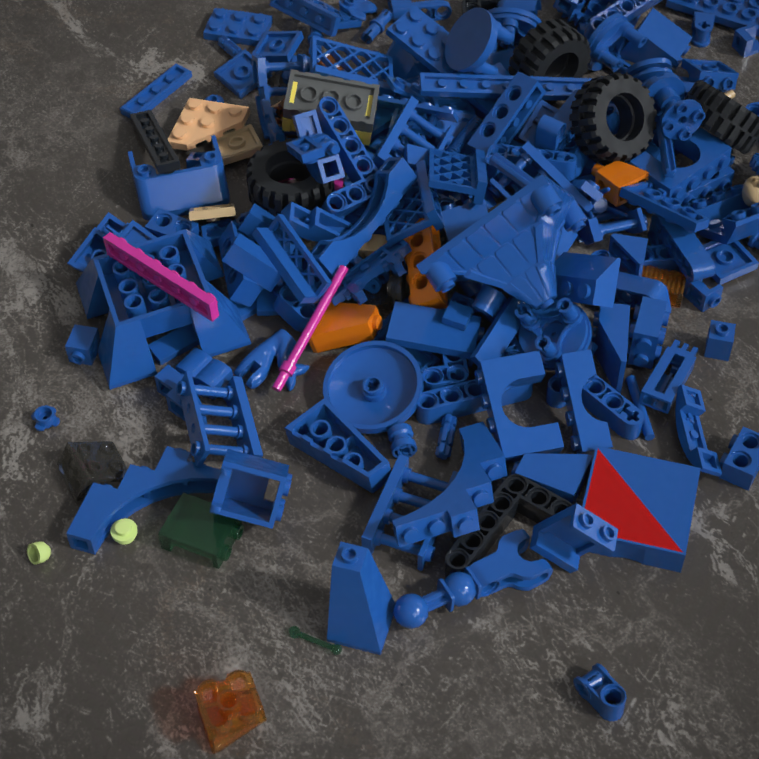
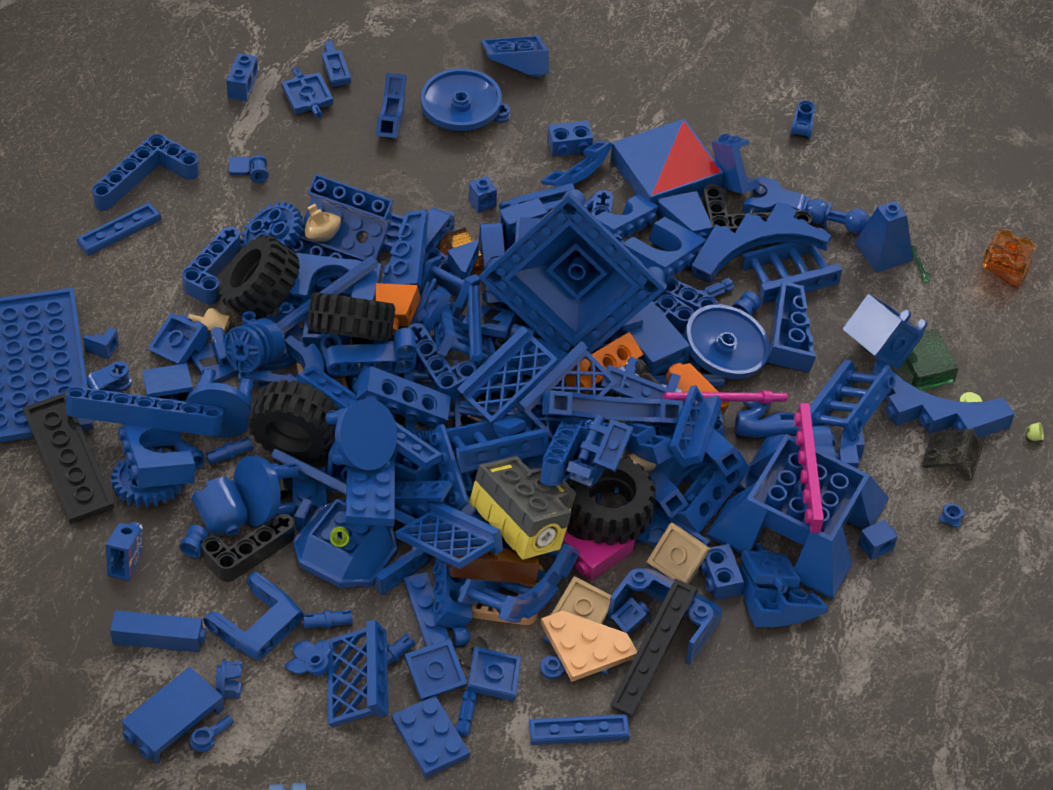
camera: 135 degrees left, 0 degrees up
(679, 116) = (290, 301): blue piece -> none

